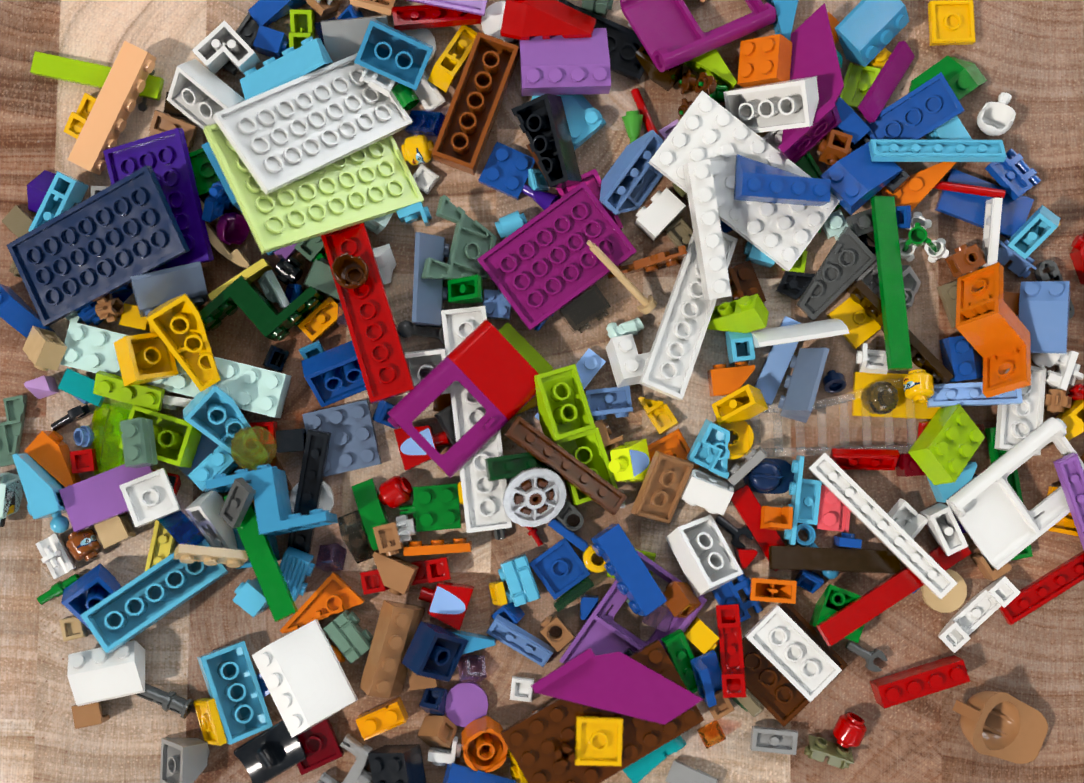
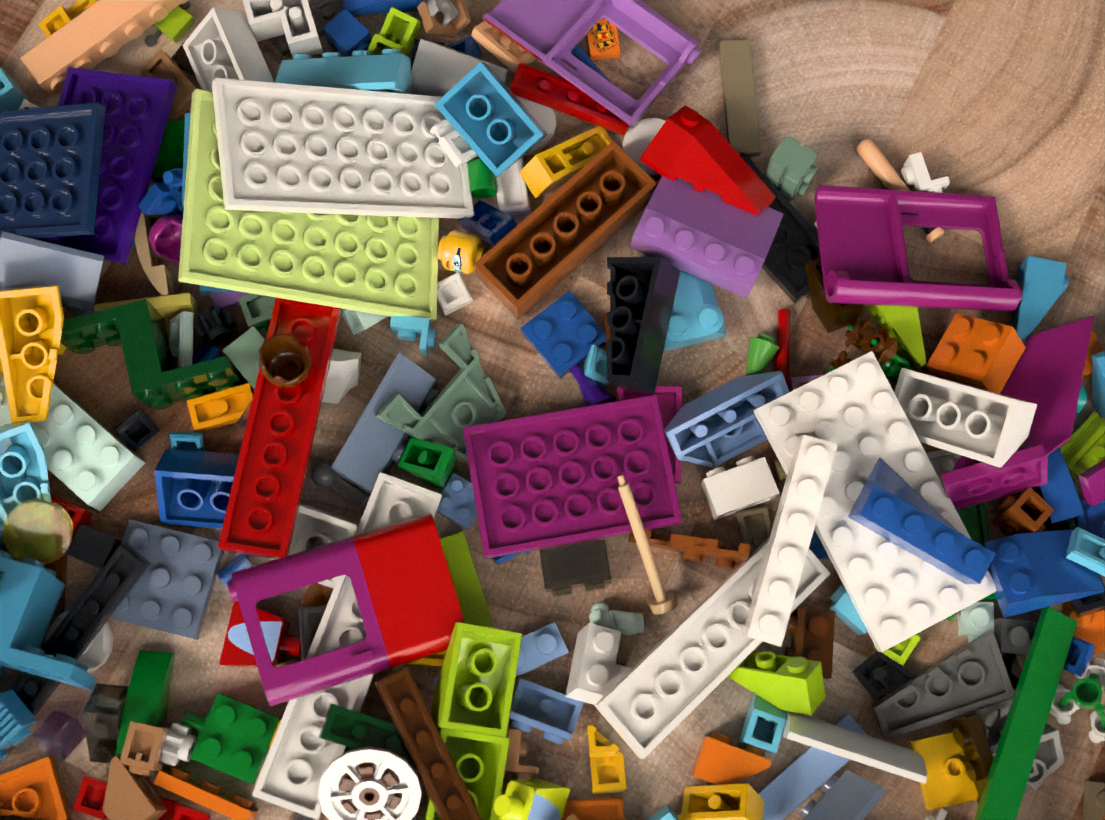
camera: 30 degrees right, 10 degrees down
(395, 491) = (192, 687): red head -> none
(510, 223) = (532, 403): medium azure brick -> none

